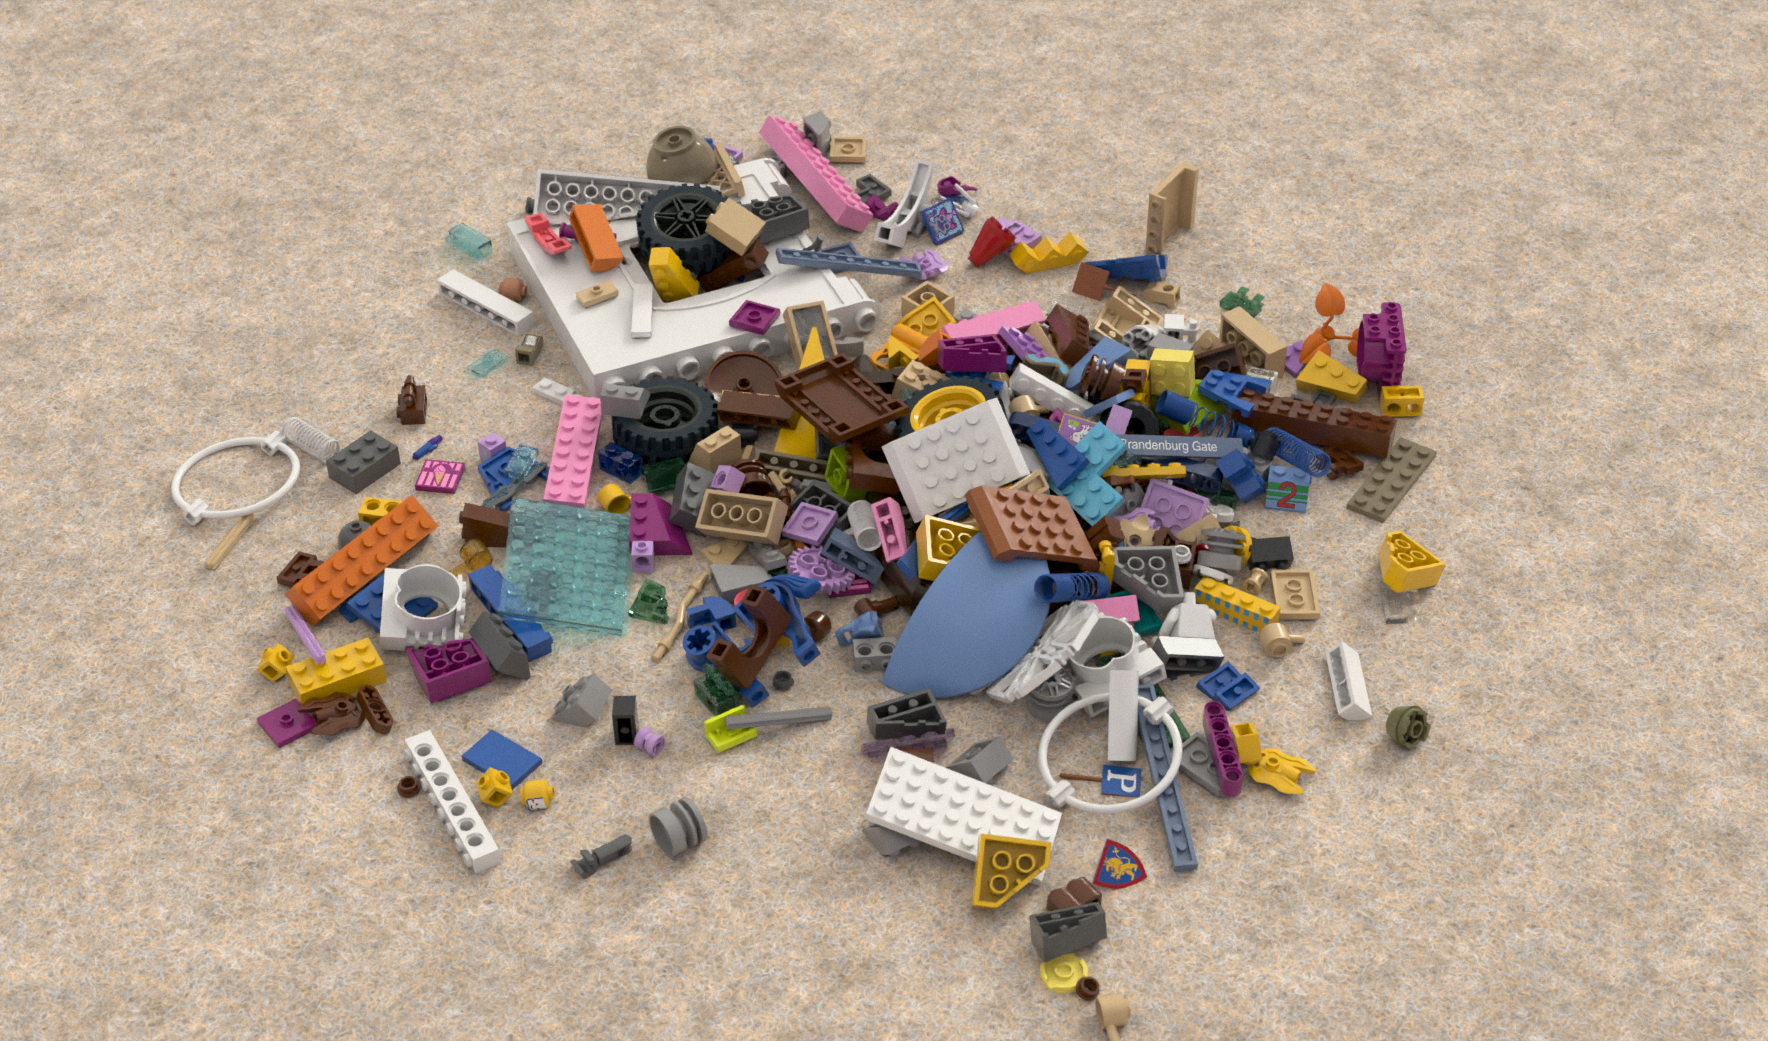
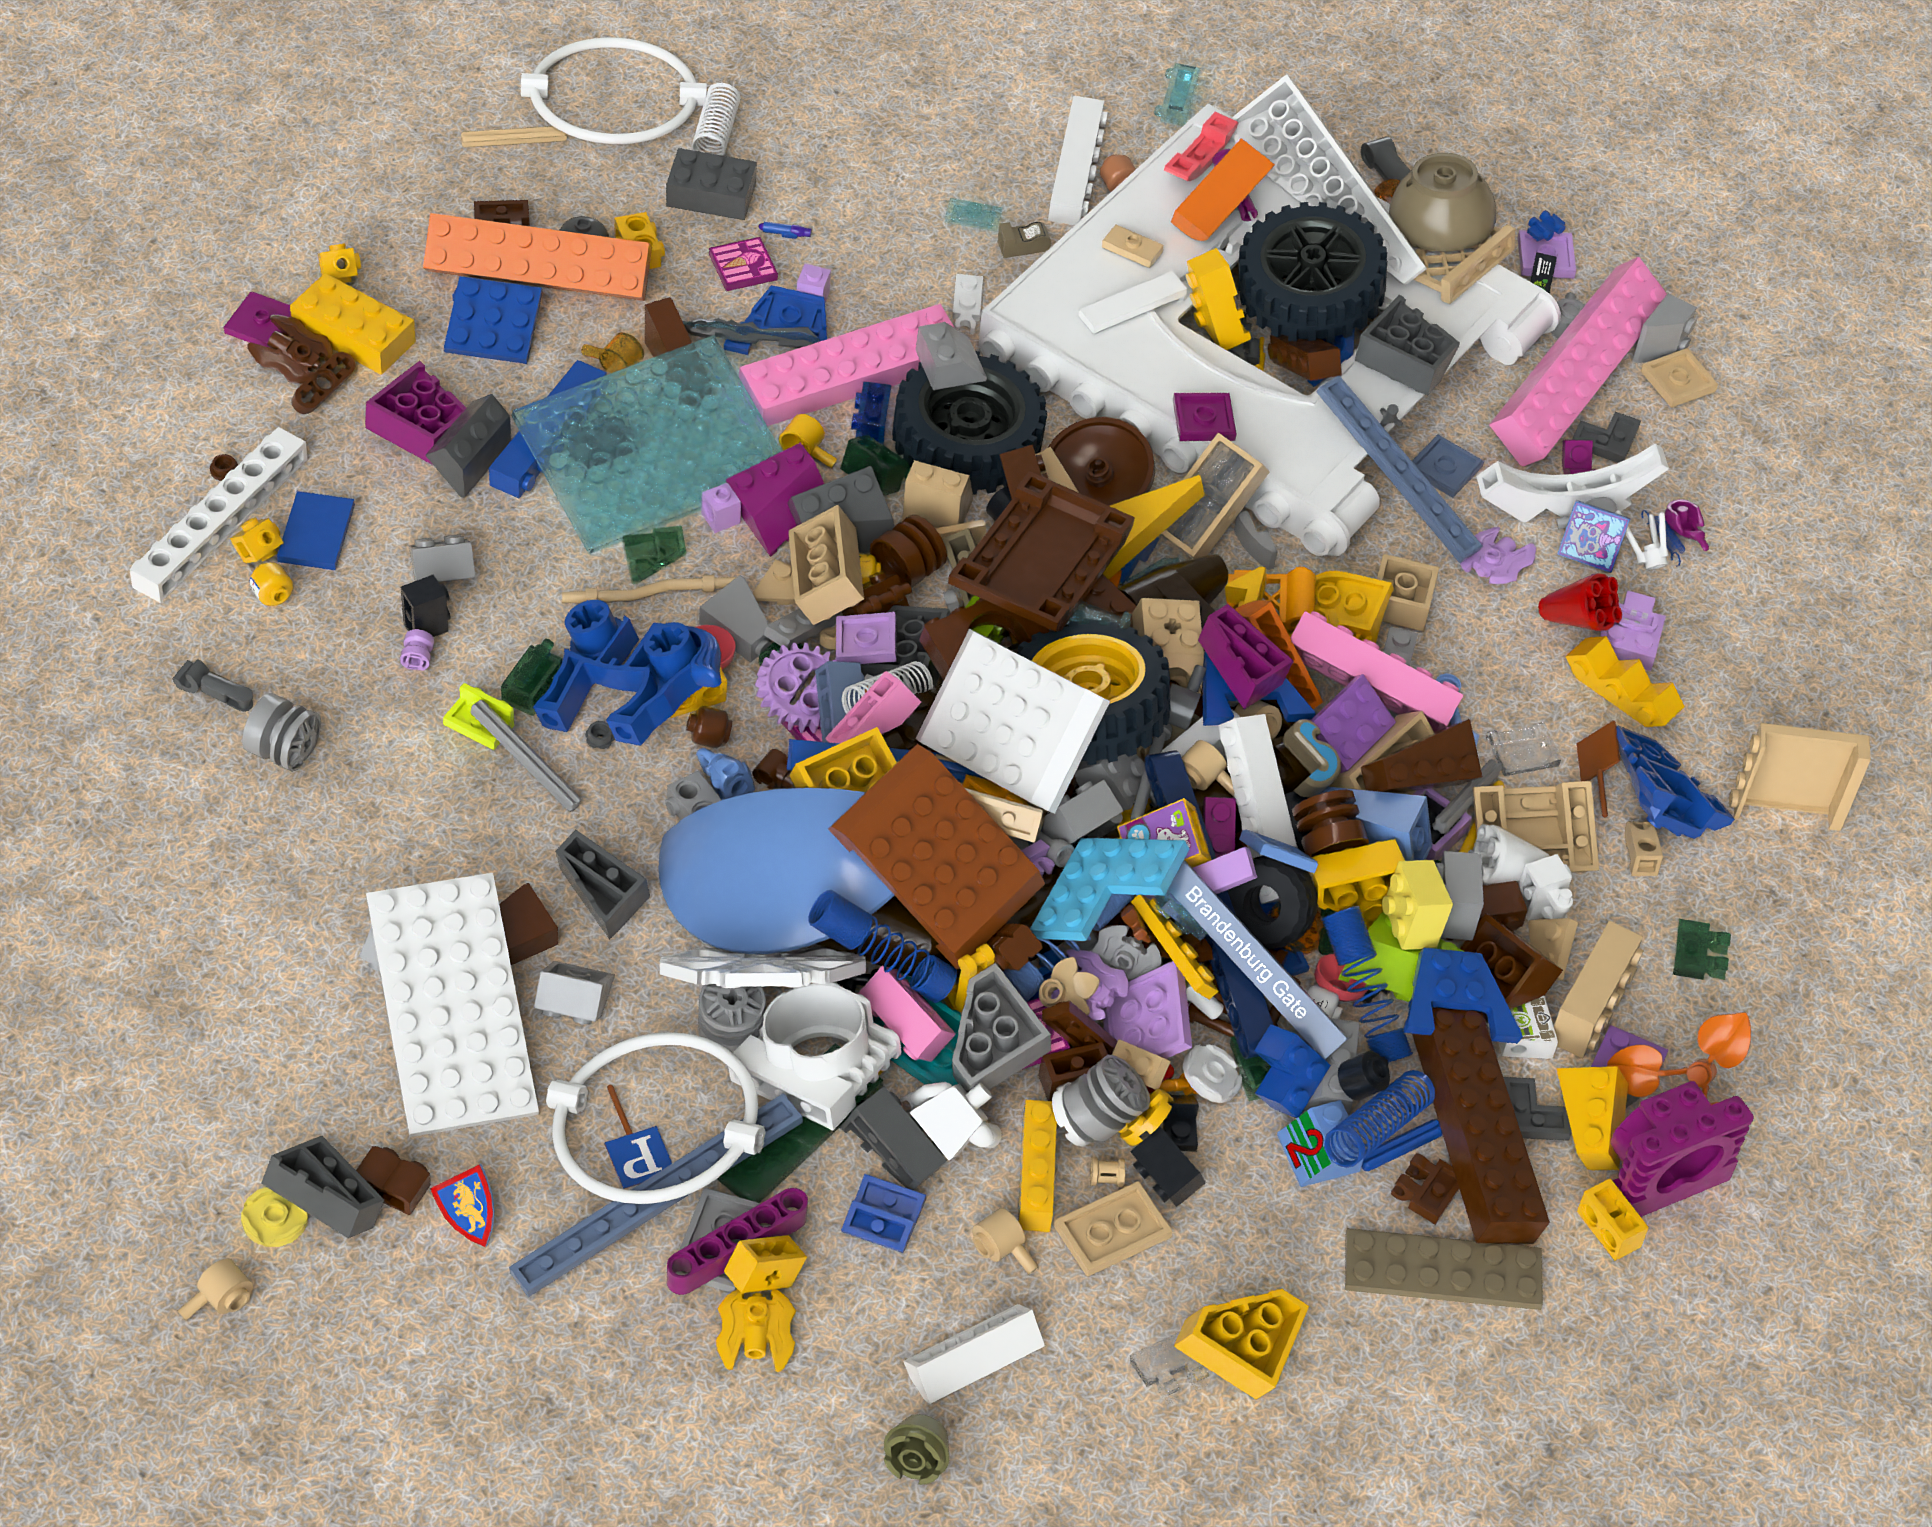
camera: 55 degrees right, 10 degrees up
(305, 634) = (379, 269): lavender axle -> none
(404, 629) = (469, 321): white hose -> none
(412, 403) = (843, 178): reddish brown brick -> none
(521, 462) = (803, 321): clear light blue plate -> none
(712, 610) = (663, 609): blue brick -> none
(727, 479) = (875, 522): lavender brick -> none
(734, 226) = (1325, 310): tan brick -> none
(770, 623) = (558, 676): reddish brown arch -> none
(780, 481) = (930, 586): tan plate -> none
(874, 749) = (560, 903): wing -> none
(1005, 867) = (382, 1076): yellow brick -> none
(1058, 455) = (1115, 828): blue wing -> none
(1089, 983) = (256, 1239): reddish brown plate -> none
(1123, 715) = (713, 1099): white brick -> none
(1134, 379) = (1340, 860): reddish brown bracket -> none
(1183, 554) = (1065, 1048): white plate -> none

